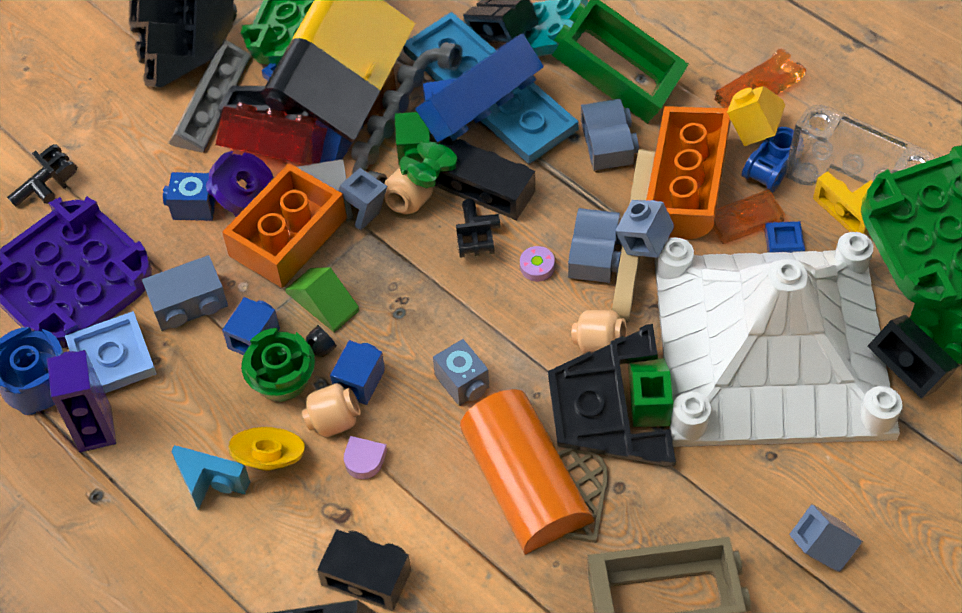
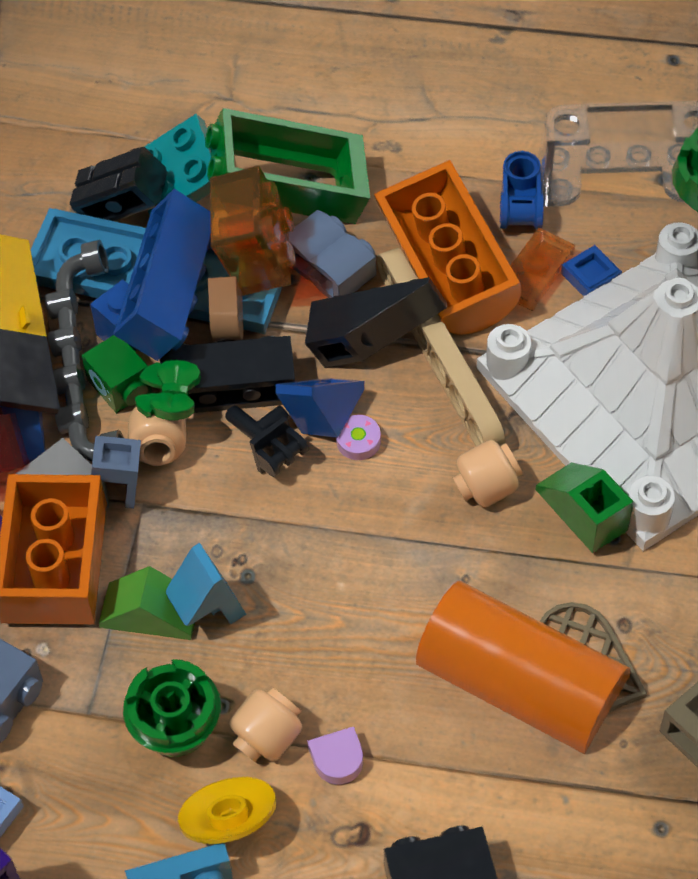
camera: 35 degrees left, 0 degrees up
(248, 321) = (99, 688): blue brick -> none
(320, 342) = (190, 652): black hinge -> none
(357, 300) = (201, 590): none -> dark azure slope
(359, 369) = (261, 661): blue brick -> none
(461, 372) = (376, 600): sand blue brick -> none
(505, 131) = (225, 309): none -> medium nougat piece
(525, 227) = (320, 404): none -> blue slope
(554, 86) = (251, 230): none -> clear orange brick
(592, 403) = (541, 553): black wing -> none
(593, 187) = (366, 321): none -> black slope
(594, 246) = (410, 383): sand blue brick -> none
(644, 228) = (464, 333): sand blue brick -> none
(755, 114) = (477, 155): yellow slope -> none
(764, 75) = (441, 121): clear orange plate -> none
(841, 202) = (635, 206): yellow slope -> none

